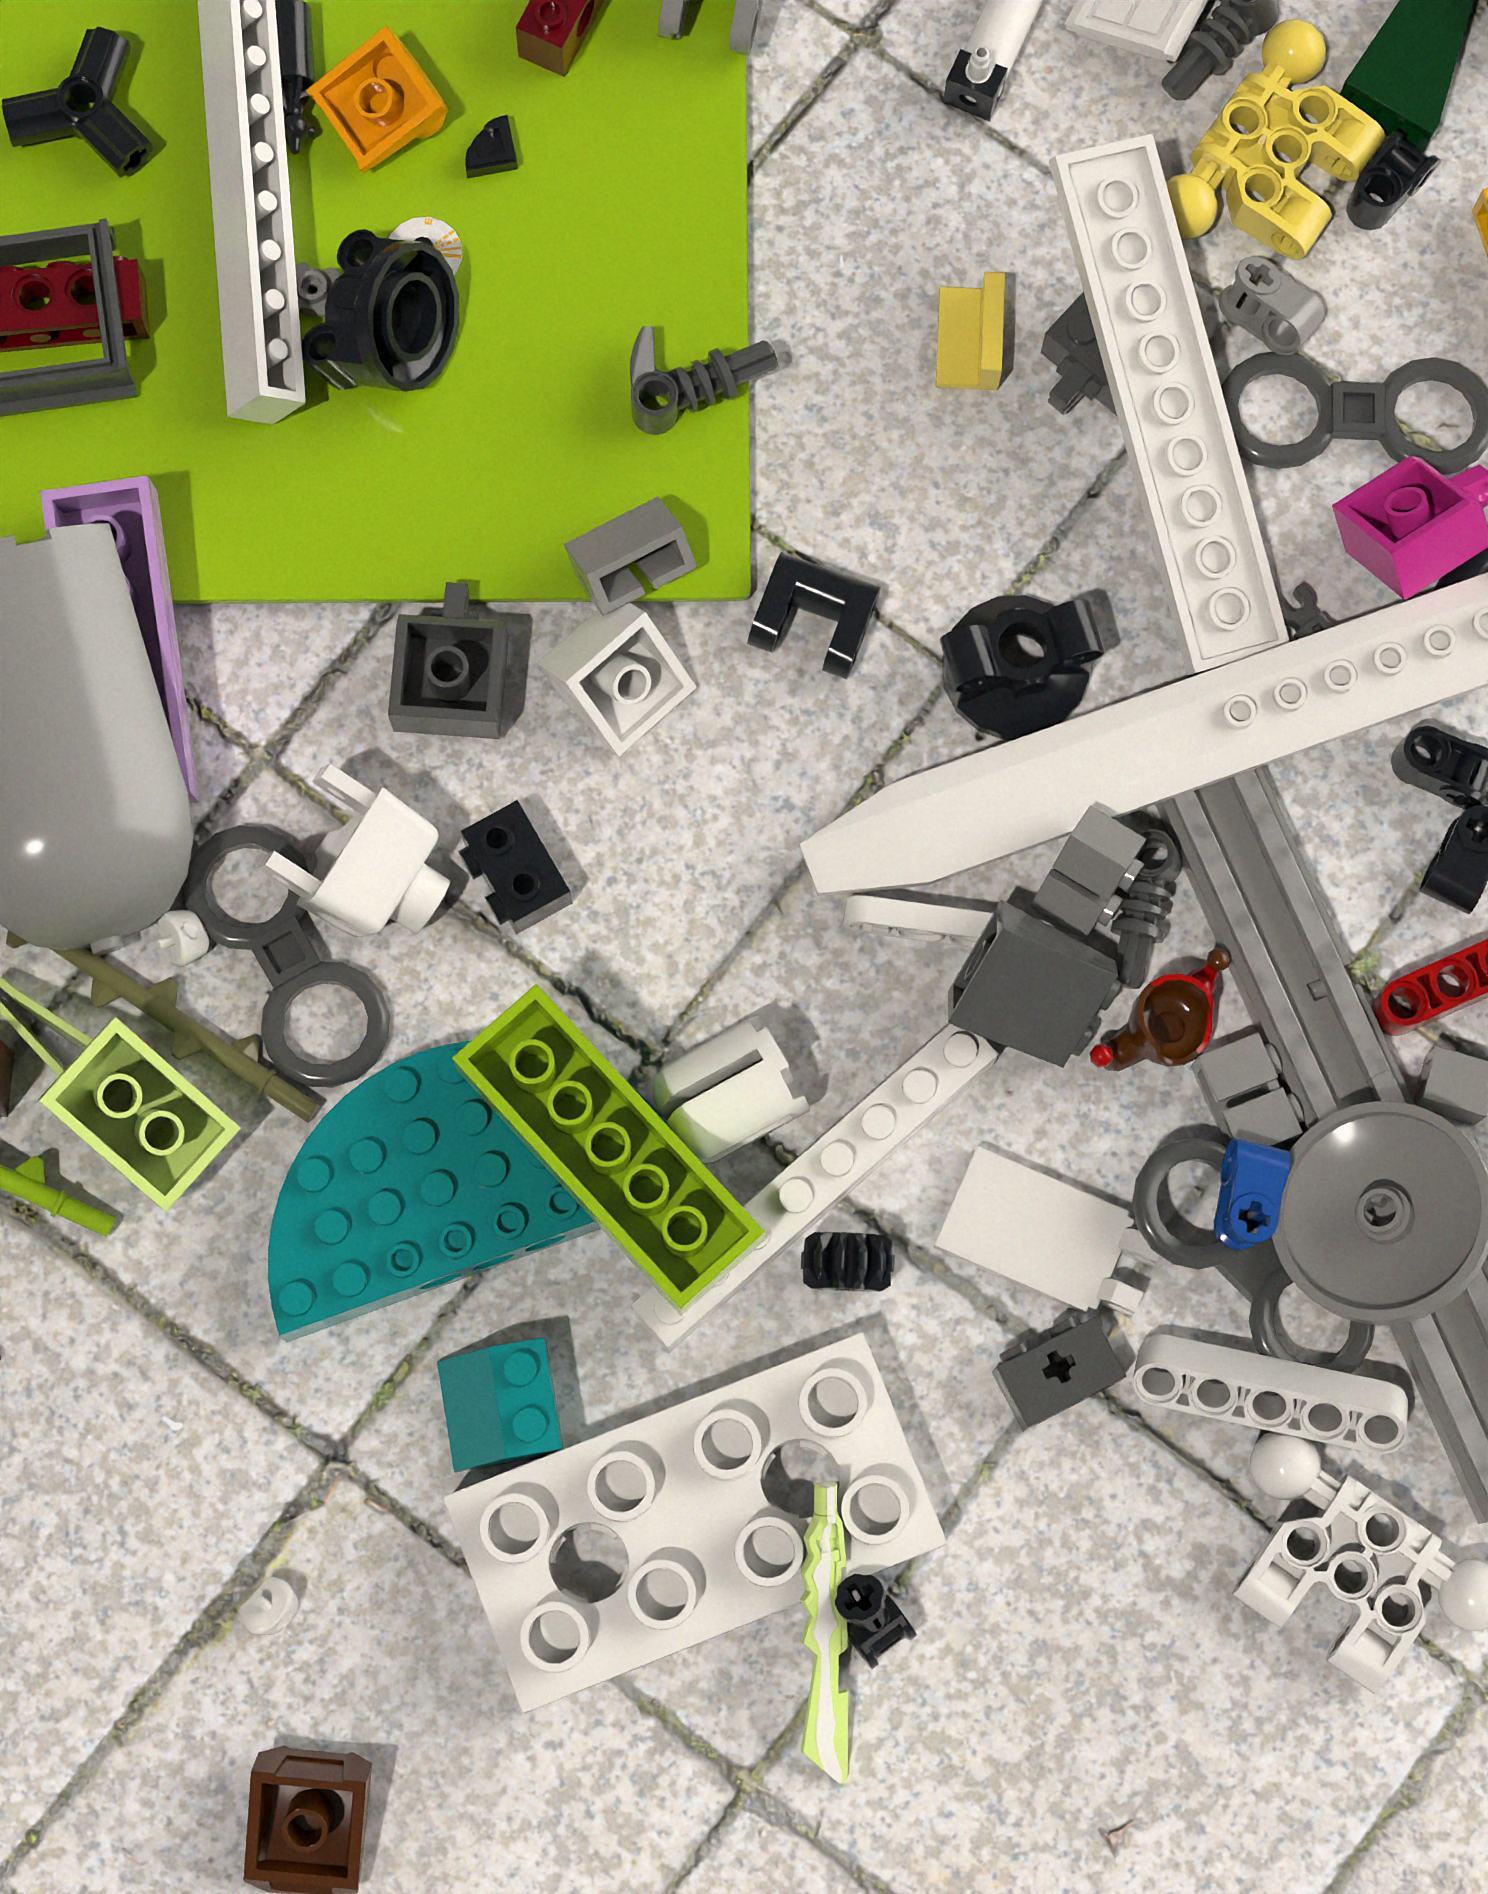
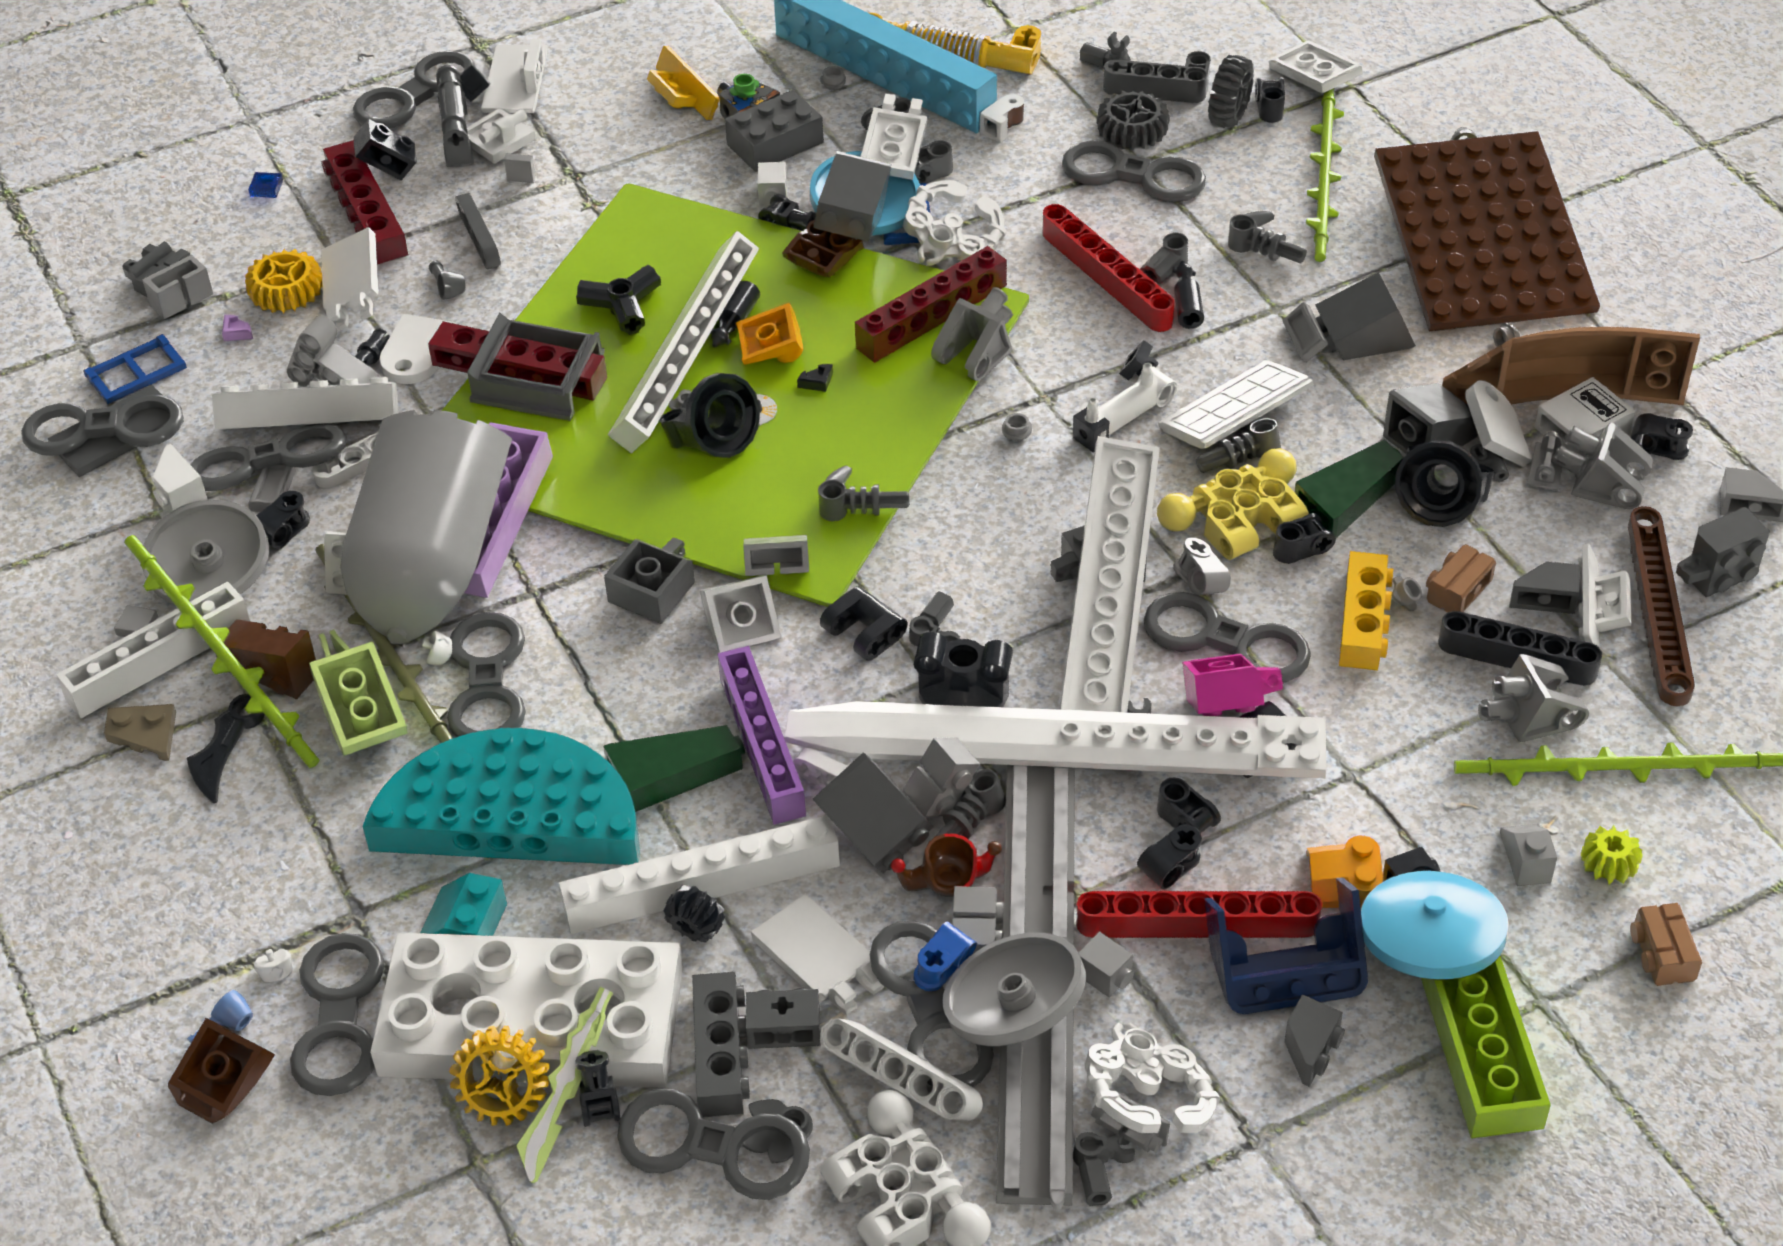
camera: 30 degrees right, 30 degrees down
(261, 1719) = (230, 1012): none -> medium blue bar
(367, 866) = (550, 642): white piece -> none
(413, 1645) = (337, 1014): none -> dark grey bar
(515, 867) = (630, 677): black brick -> none
(609, 1149) = (589, 791): lime brick -> none
(669, 998) = (674, 763): none -> dark green slope
(728, 1092) = (677, 809): white cylinder -> none
(730, 1668) = (510, 1101): none -> yellow gear
(775, 897) = (761, 735): none -> medium lavender brick
(854, 110) = (1017, 427): none -> light grey plate
(909, 590) = (931, 619): none -> dark grey bar
(971, 335) = (1028, 534): light yellow panel -> none
(1018, 1538) = (719, 1093): none -> dark grey brick
(1067, 1619) = (713, 1143): none -> dark grey bar
(1129, 1557) = (775, 1143): none -> dark grey plate

